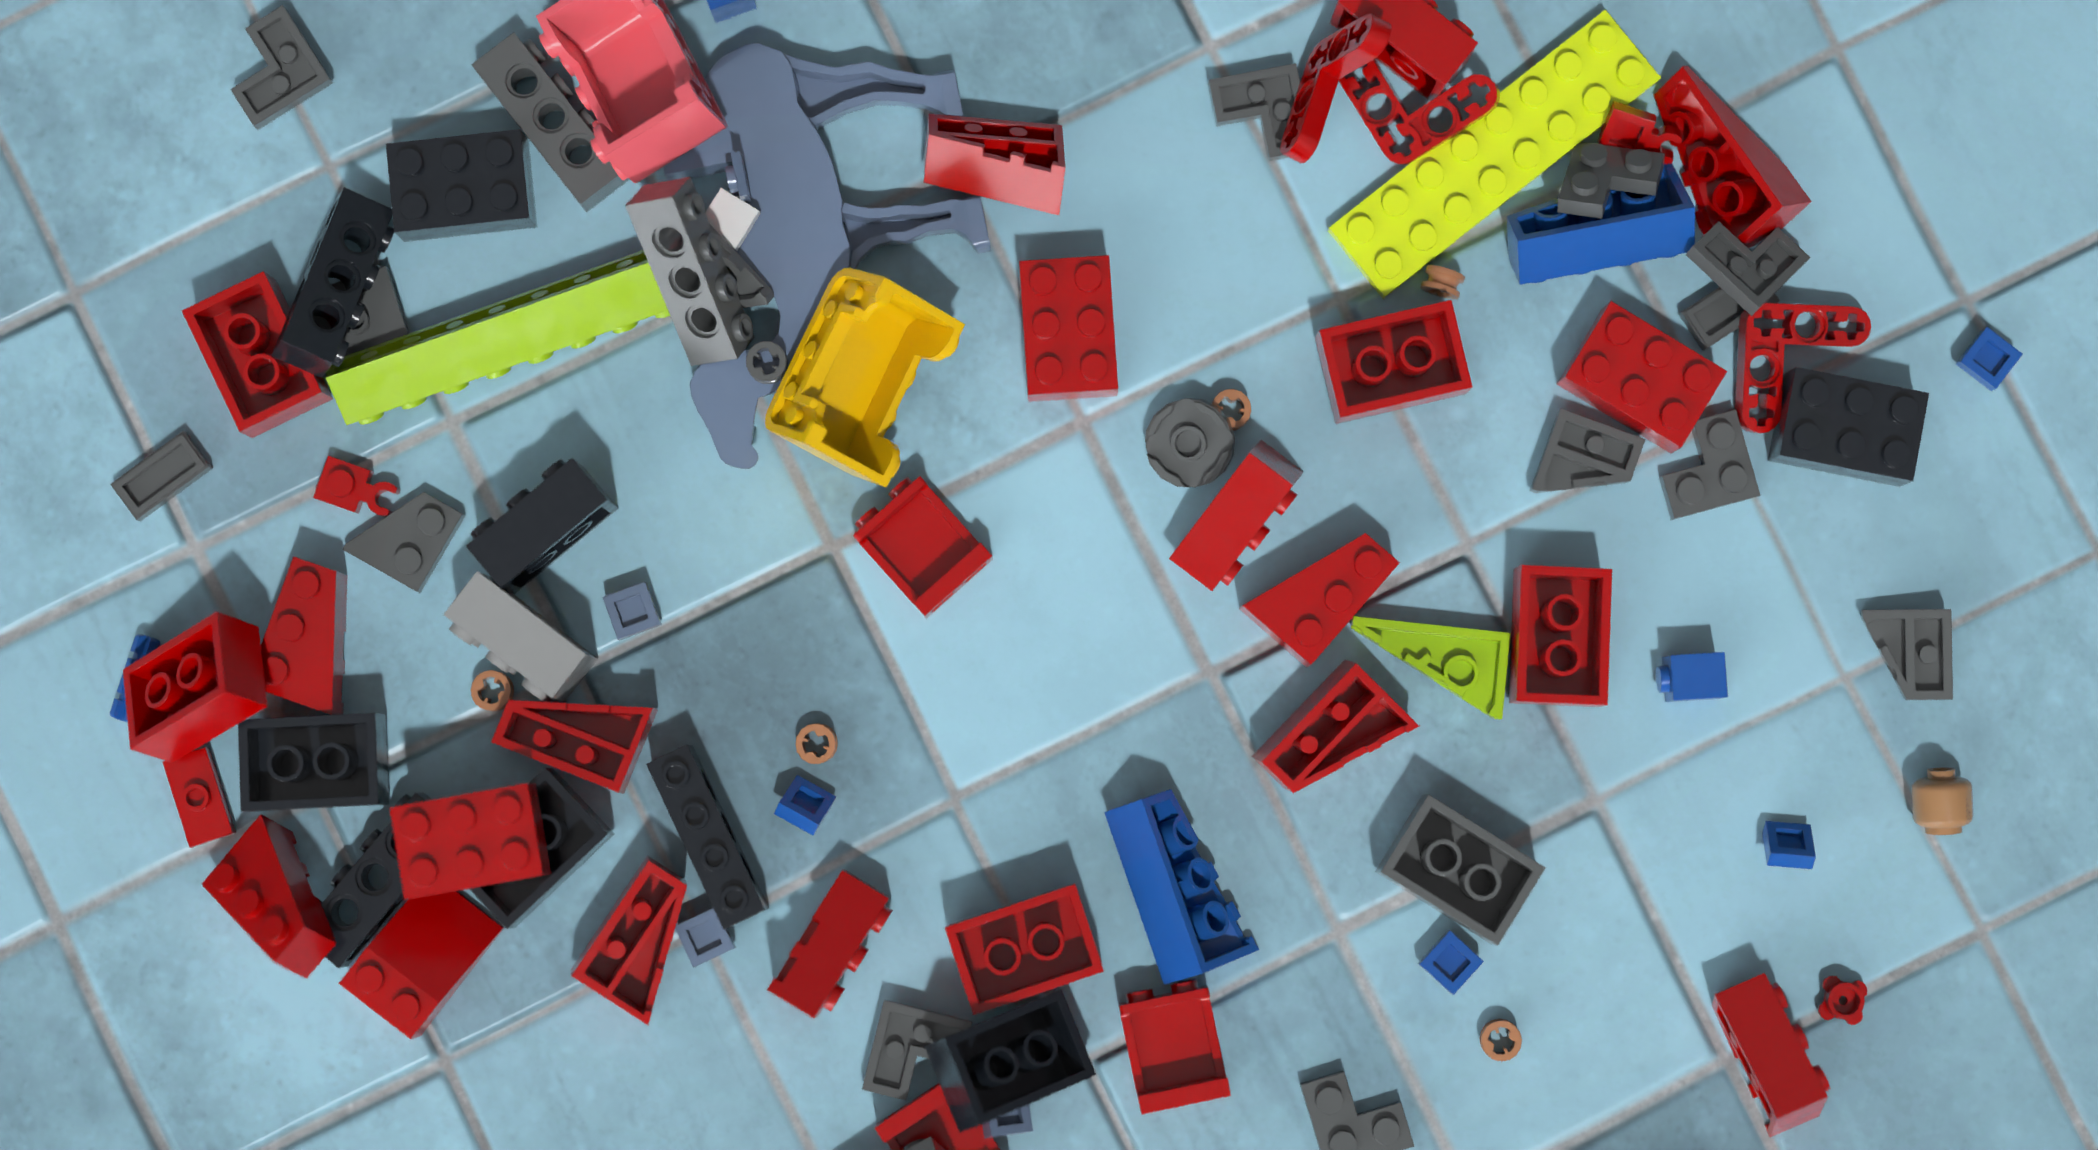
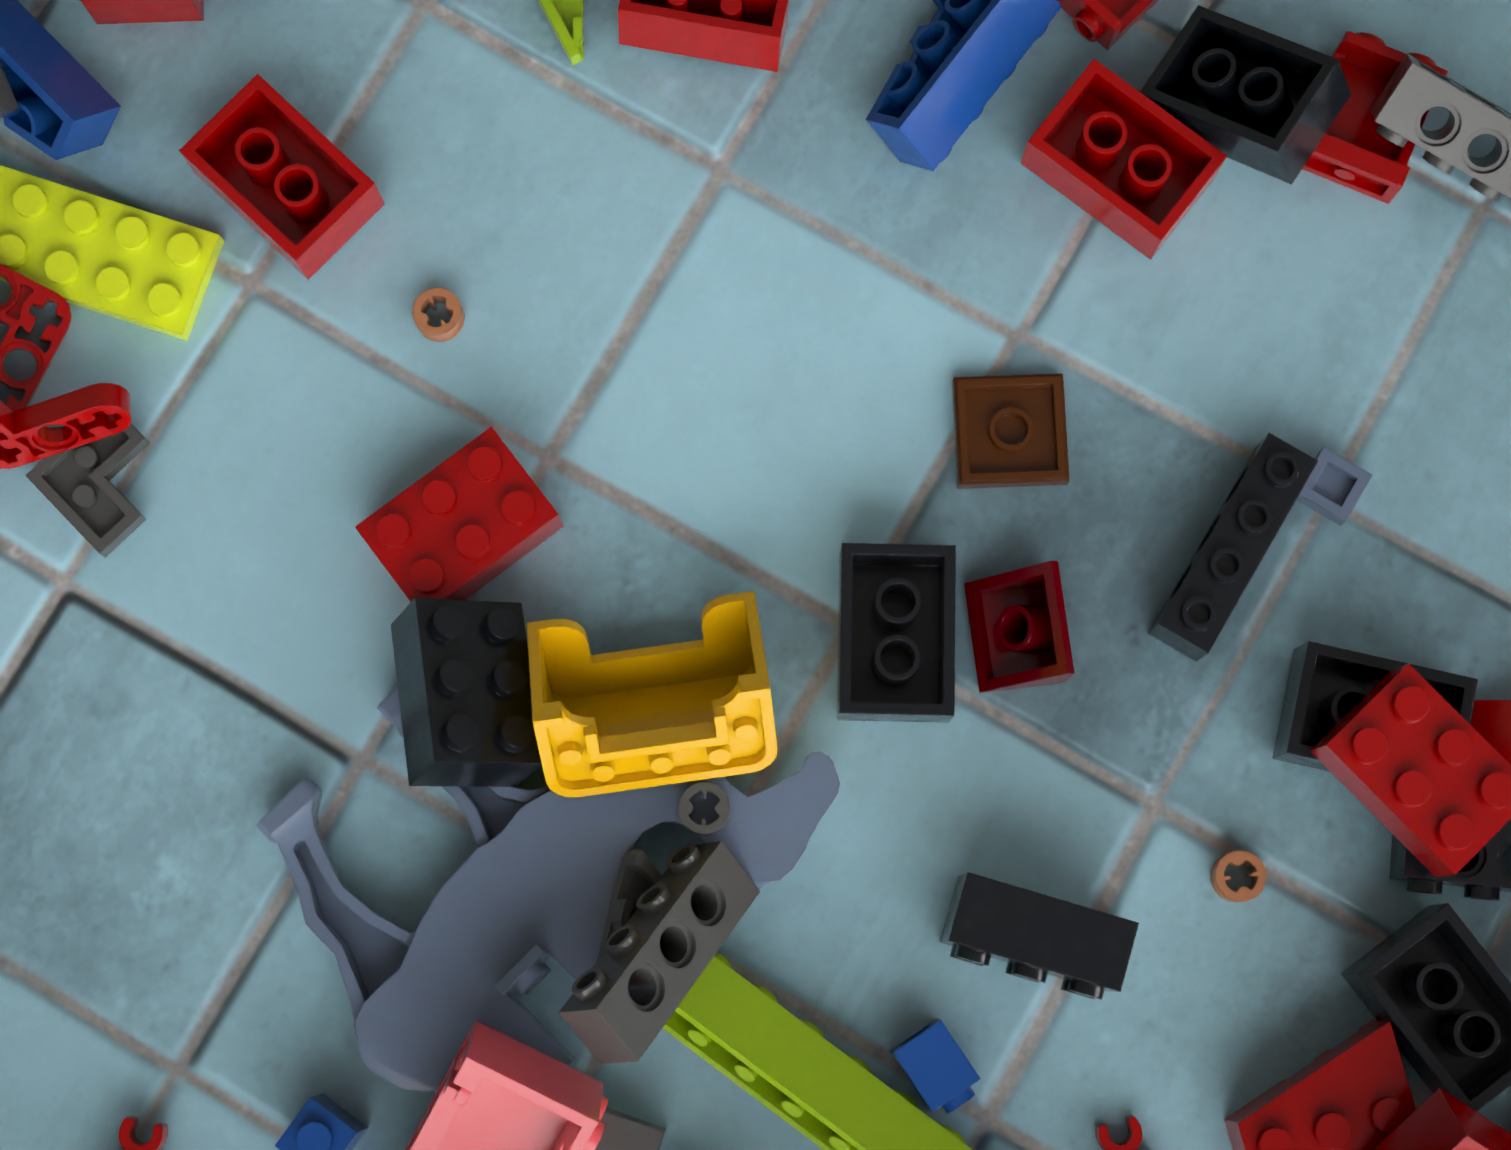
camera: 120 degrees left, 5 degrees down
(408, 540) = (1145, 1076): dark grey wing -> none
(504, 407) = (936, 1067): none -> blue brick
(519, 639) = (1172, 872): light grey brick -> none
(580, 739) = (1229, 746): red wedge -> none
(632, 611) = (1056, 784): sand blue plate -> none
(633, 941) = (1390, 551): red wedge -> none
(731, 217) = (571, 951): white tile -> none
(750, 654) = (1019, 629): none -> dark red slope
(800, 568) = (896, 632): none -> black brick
(805, 805) = (1131, 472): blue plate -> none
(820, 730) = (1043, 508): nougat bush -> none
(831, 945) = (1257, 351): red wedge -> none
(891, 746) = (1010, 431): none -> reddish brown tile
(899, 1040) = (1290, 226): dark grey plate -> none
(921, 545) = (787, 528): red panel -> none
(947, 255) = (465, 693): none -> black brick
(997, 159) = (325, 709): red wedge -> none
(1190, 442) = (499, 330): dark grey tile -> none
(1238, 516) = (544, 229): red wedge -> none
(1321, 599) = (571, 96): red wedge -> none
(1442, 282) = (167, 186): nougat bush -> none

